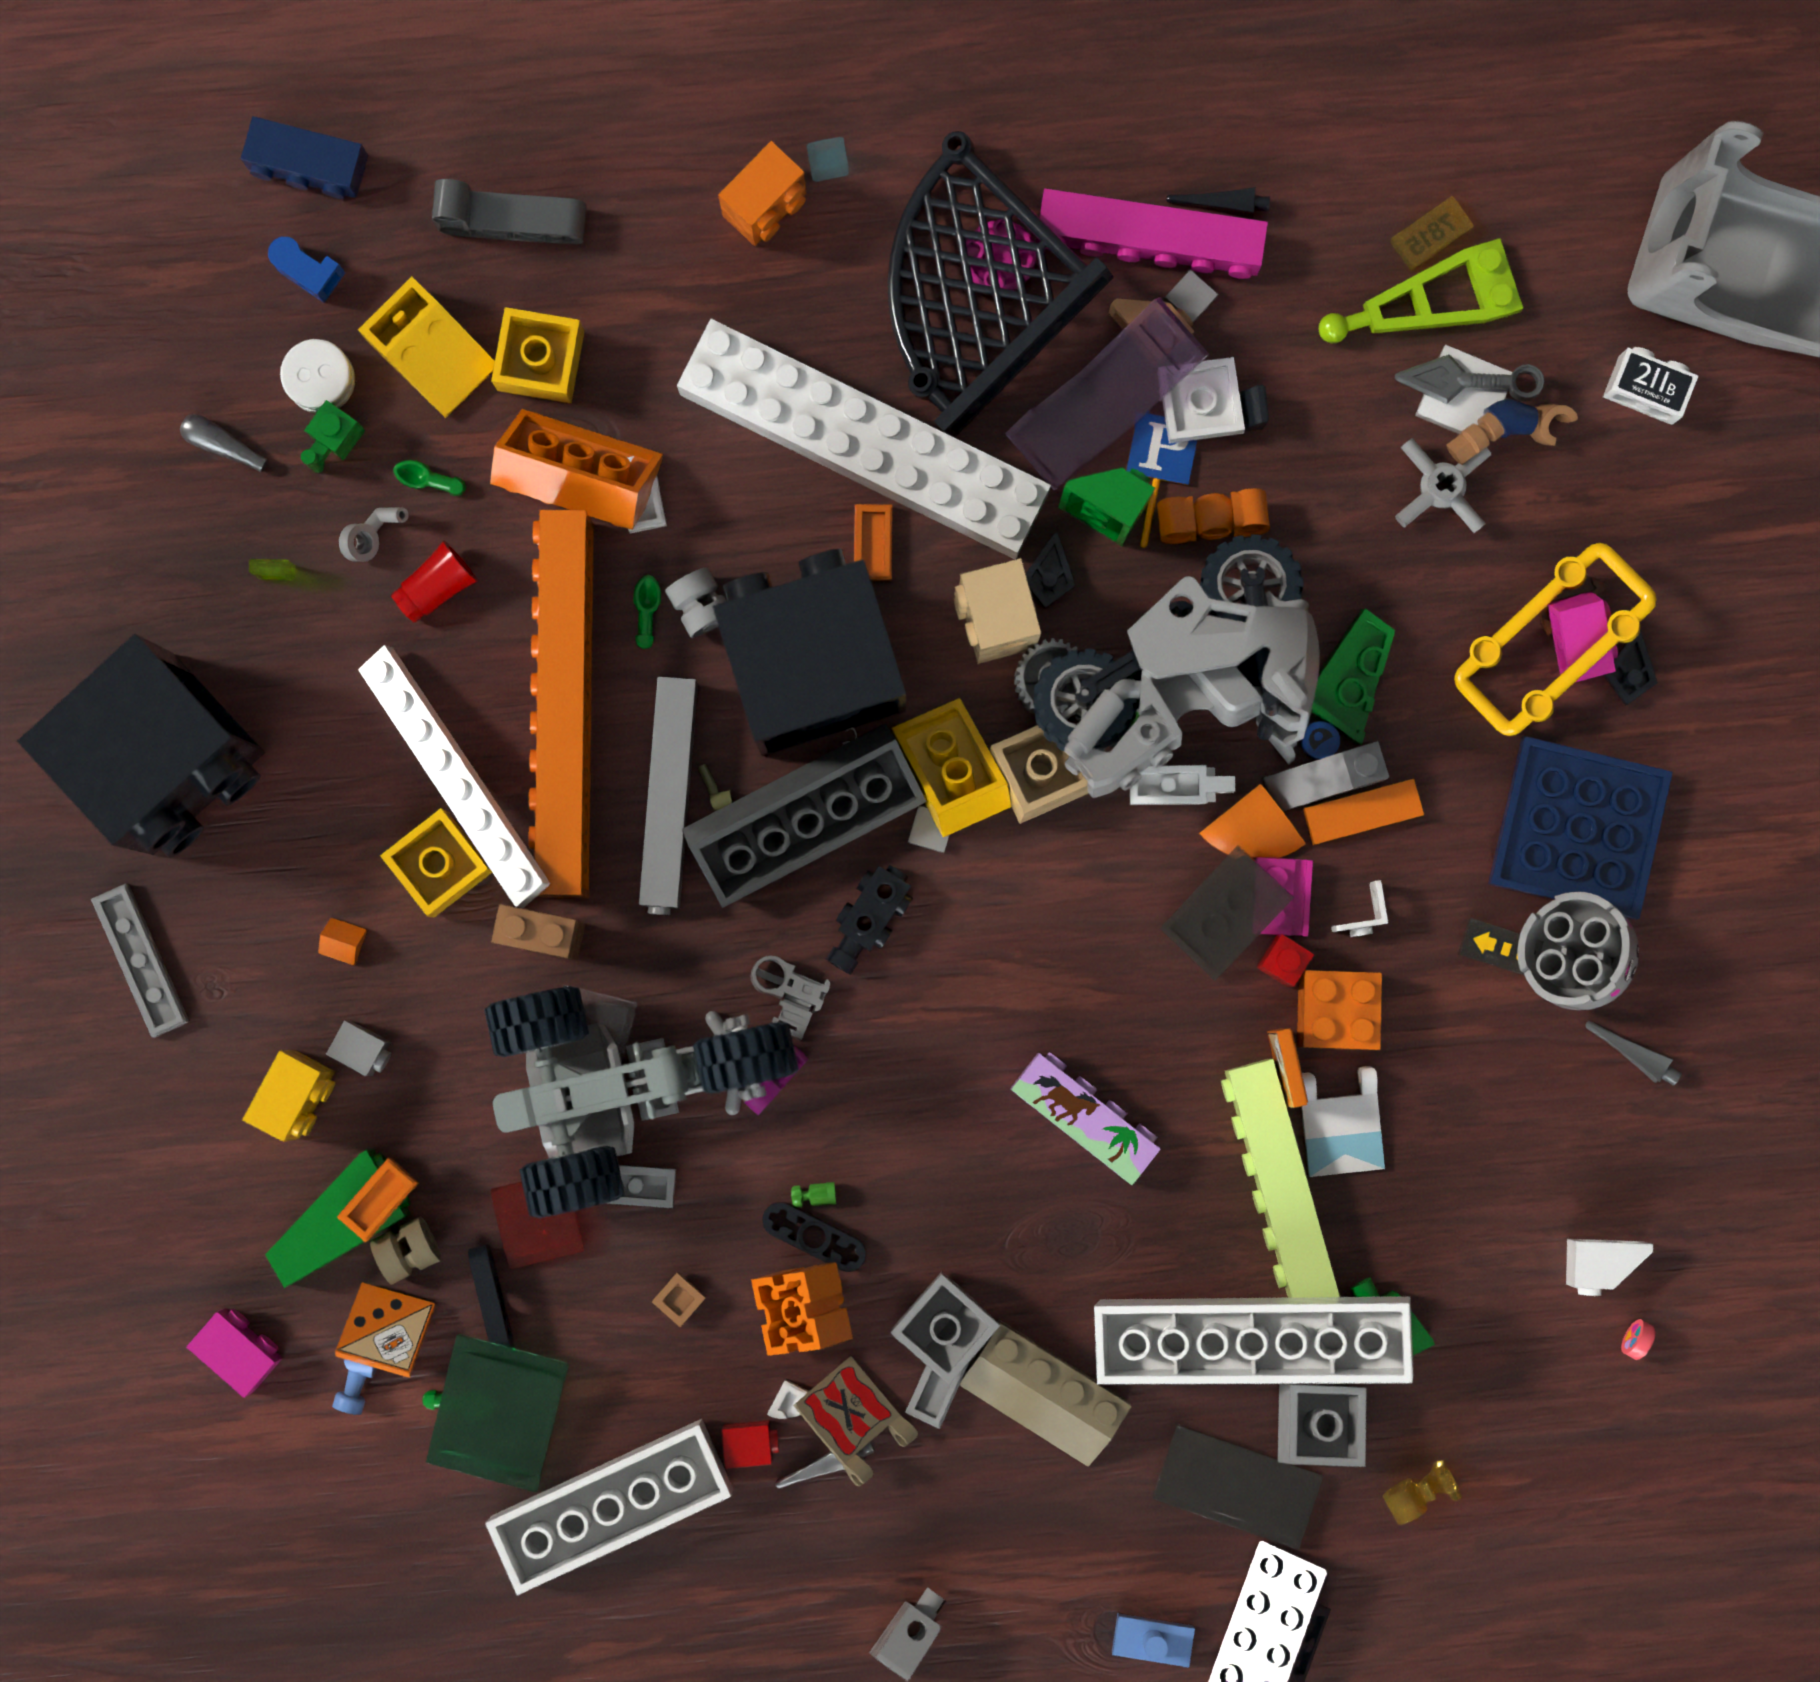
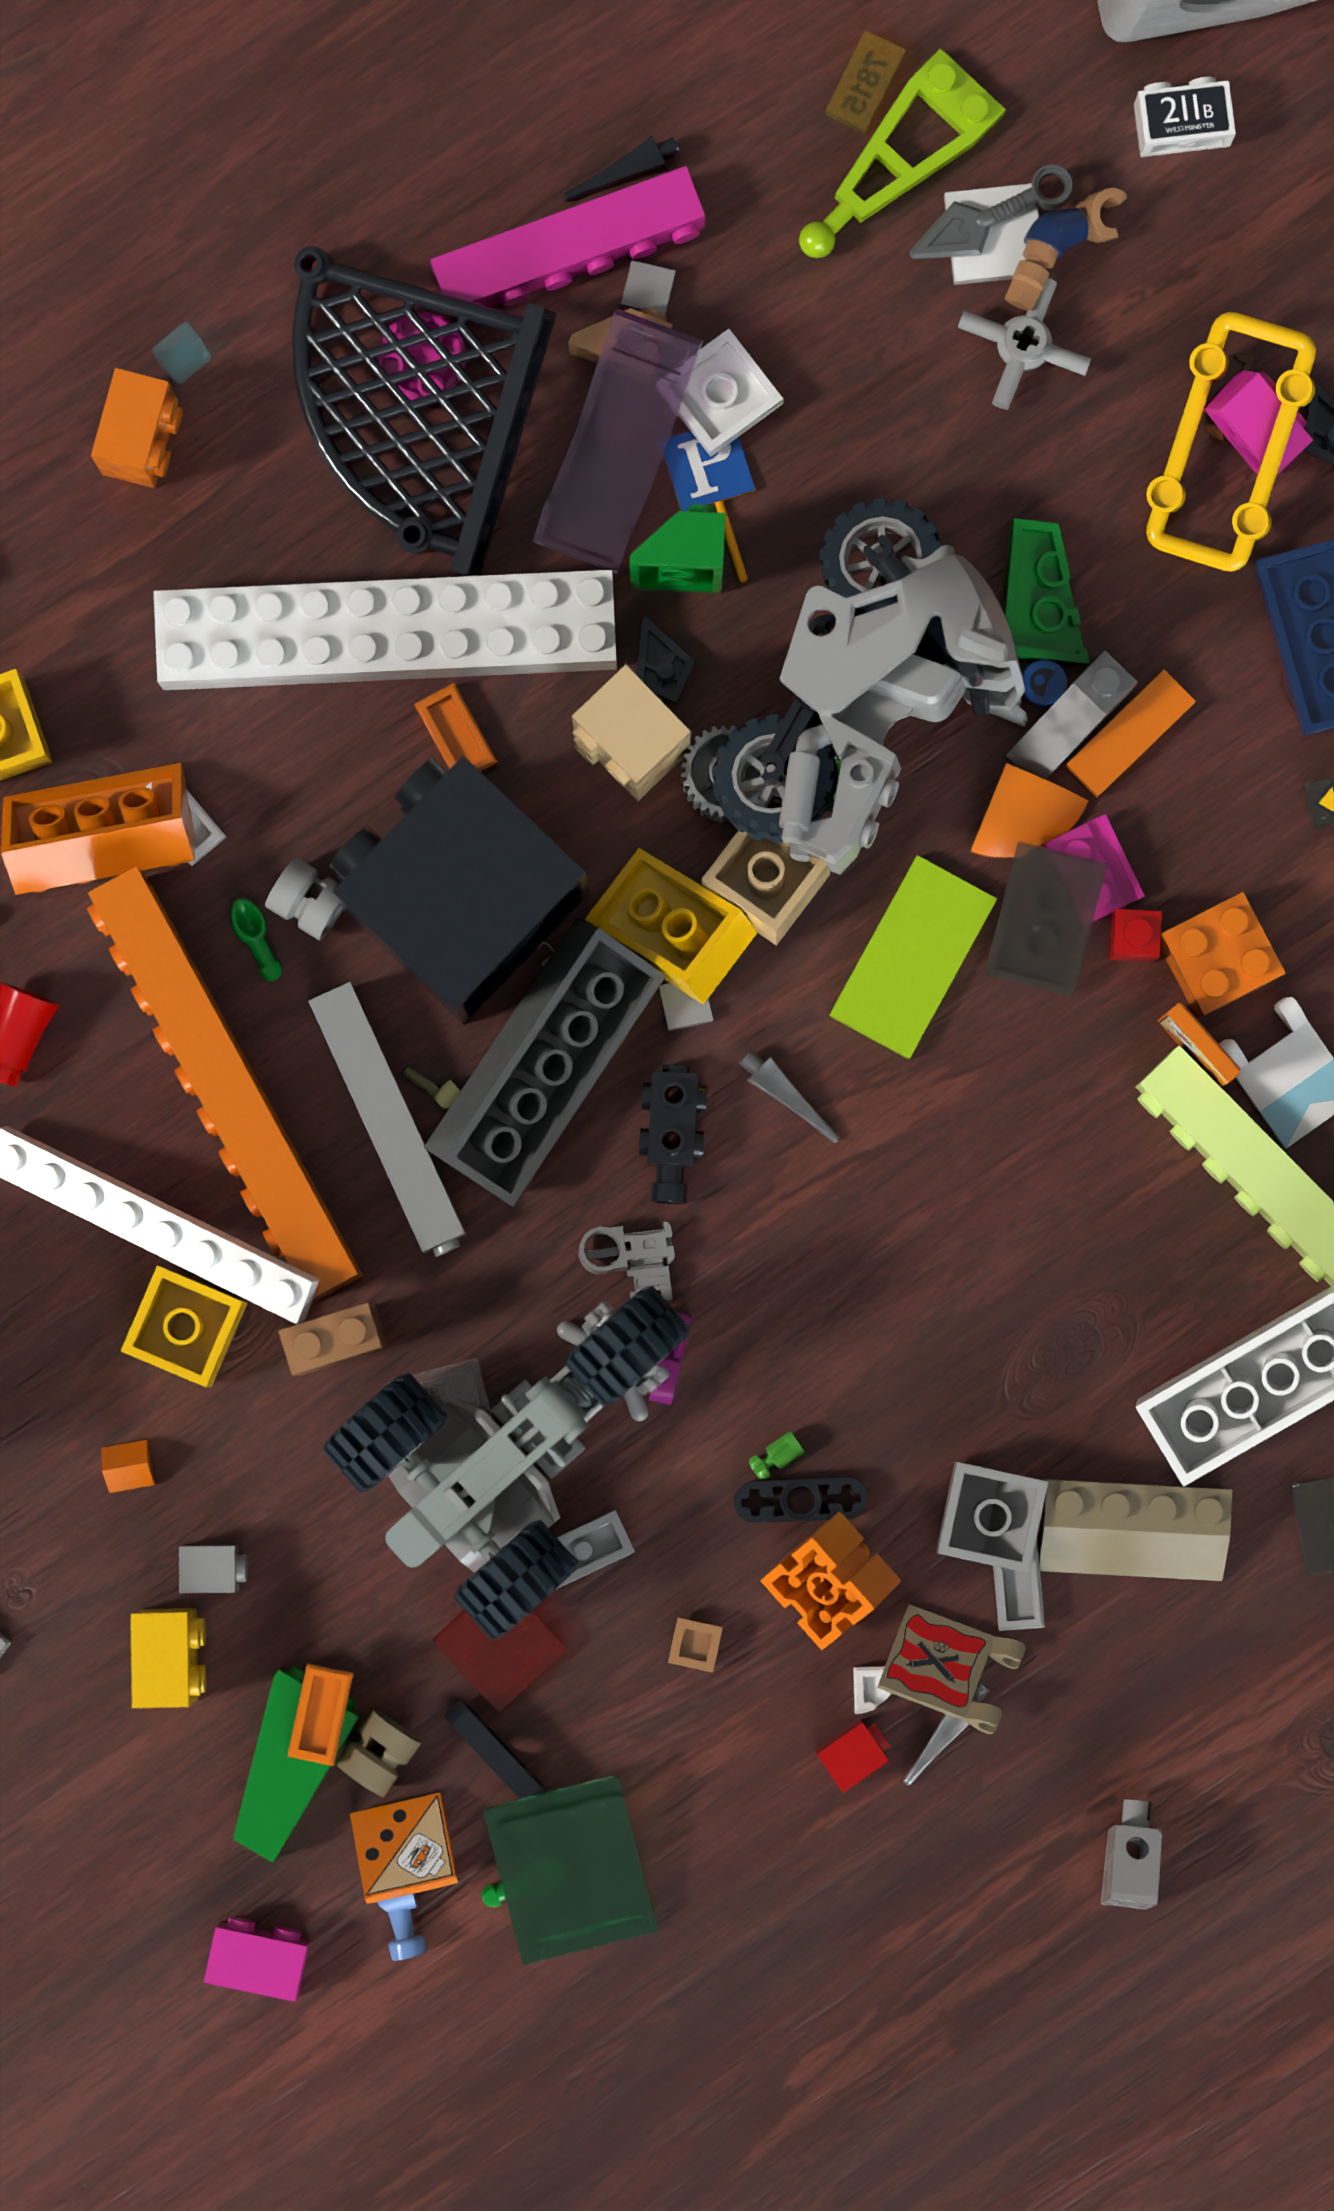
camera: 25 degrees left, 0 degrees up
(609, 1506) = (743, 1900): white brick -> none
(963, 922) = (771, 1080): none -> flat silver piece
(1085, 1118) = (1016, 1216): brick -> none
(1114, 887) = (913, 957): none -> lime tile
(1179, 785) = (923, 812): white hinge -> none
(1213, 516) = (800, 508): orange piece -> none
(1254, 408) = (780, 369): black slope -> none
(1365, 927) = (1205, 828): white bracket -> none

